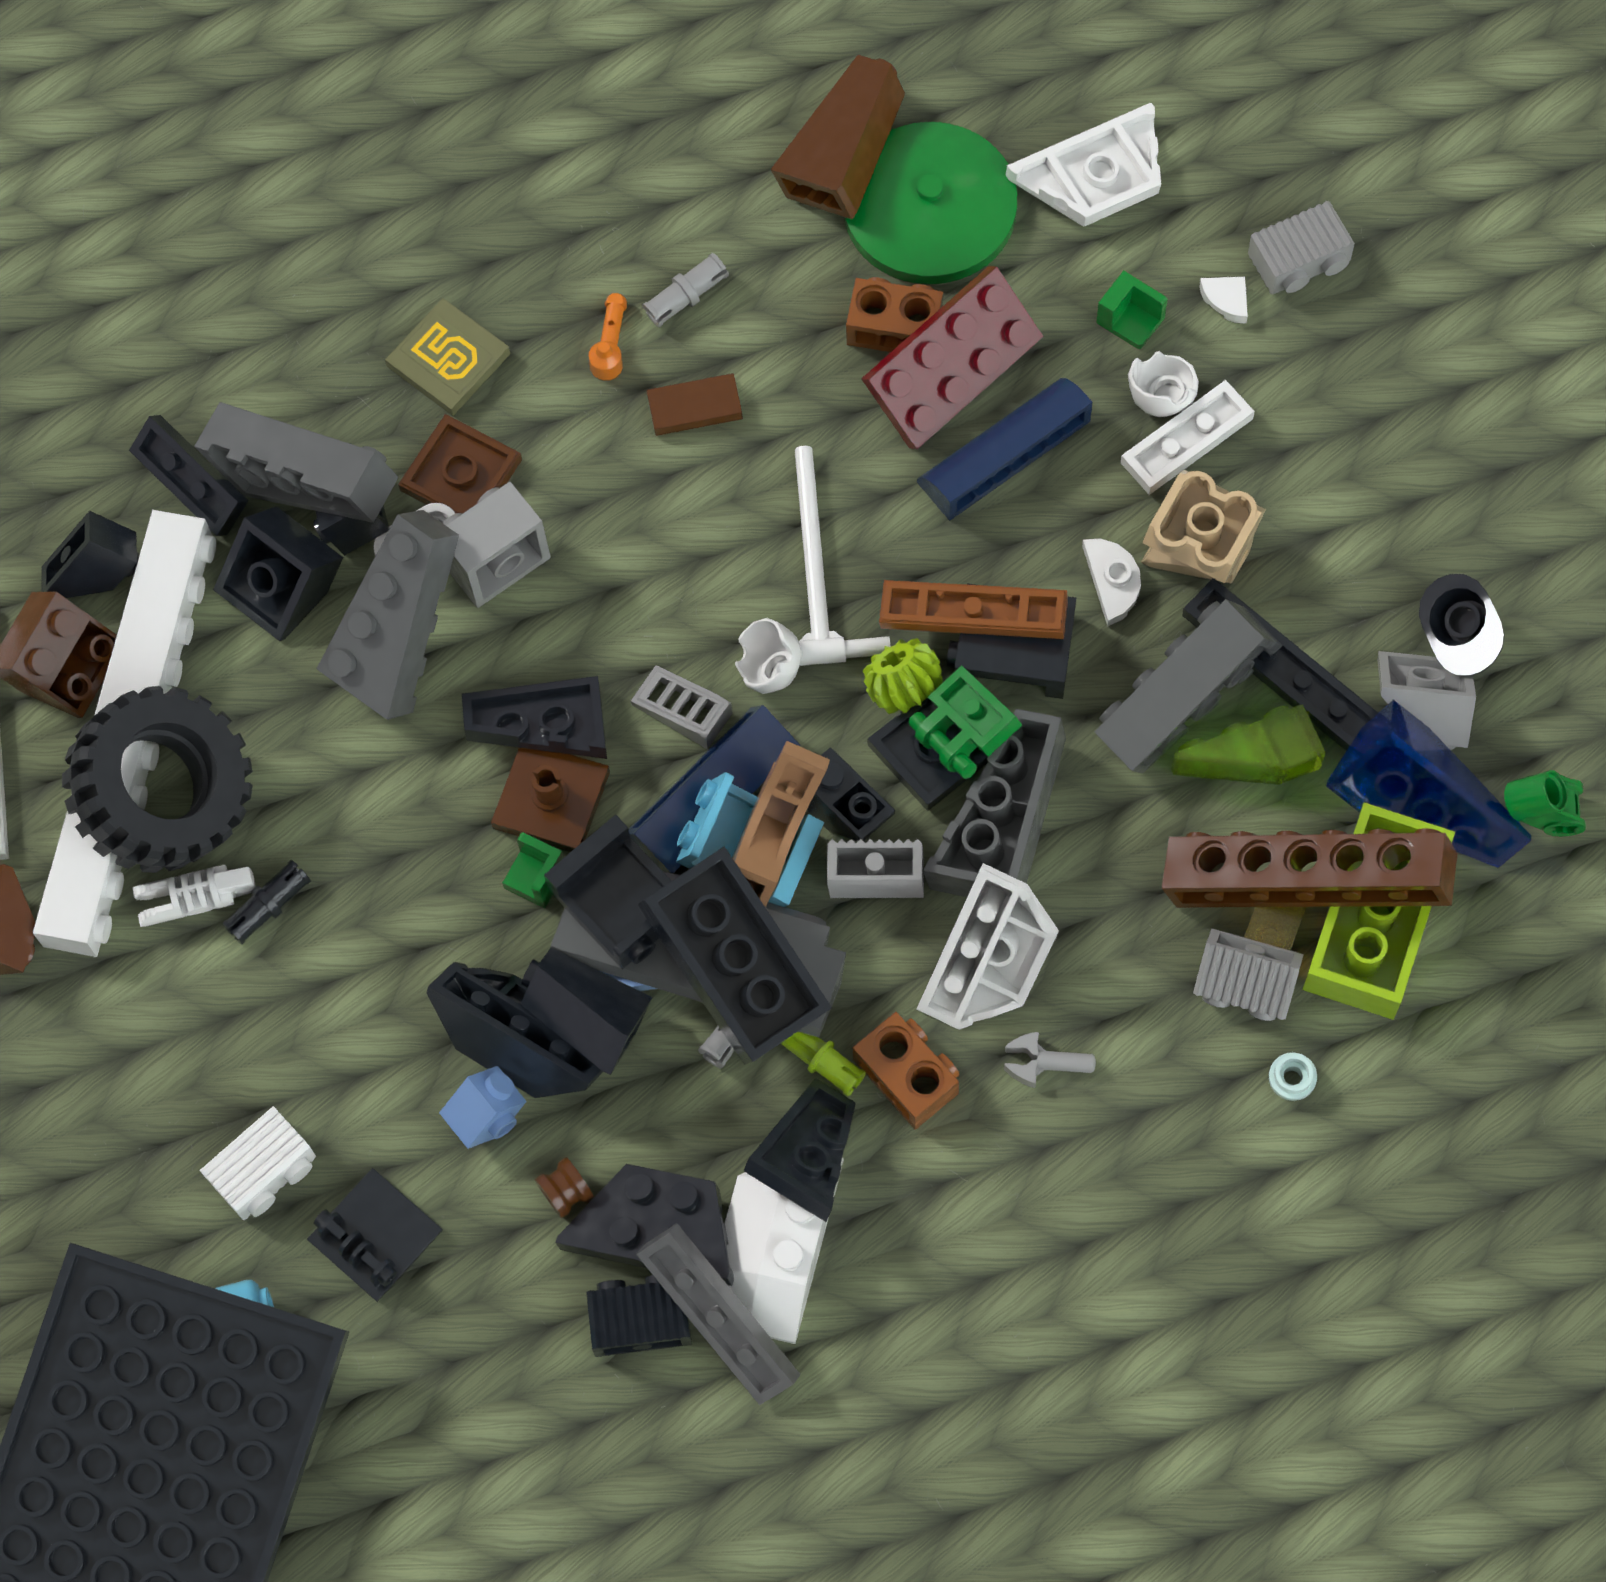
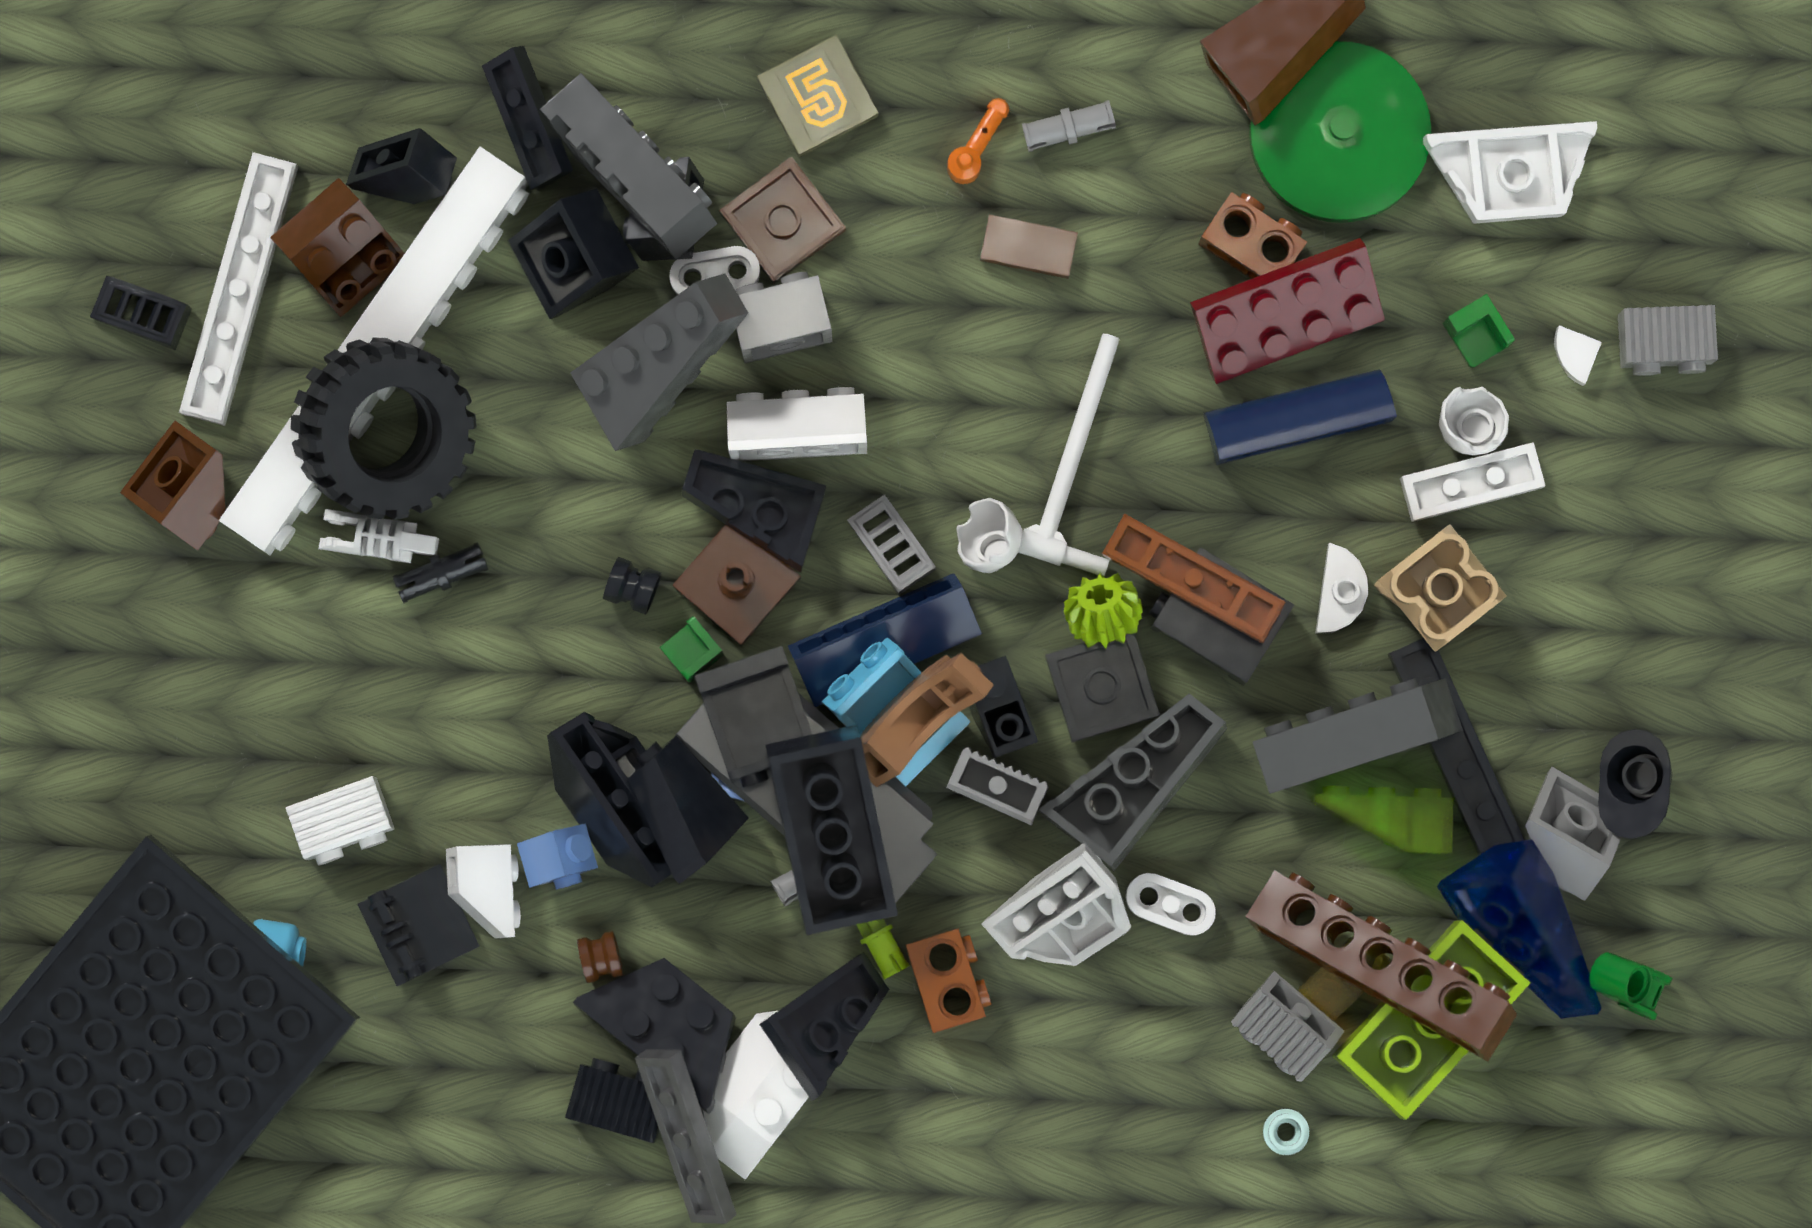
camera: 15 degrees right, 15 degrees up
(422, 1167) = (483, 886): none -> white slope
(452, 837) = (630, 585): none -> black wheel
(550, 635) = (796, 425): none -> white slope
(974, 712) = (1149, 681): green plate -> none
(1044, 1060) = (1076, 1022): light grey bar -> none
(1085, 911) = (1170, 903): none -> white plate

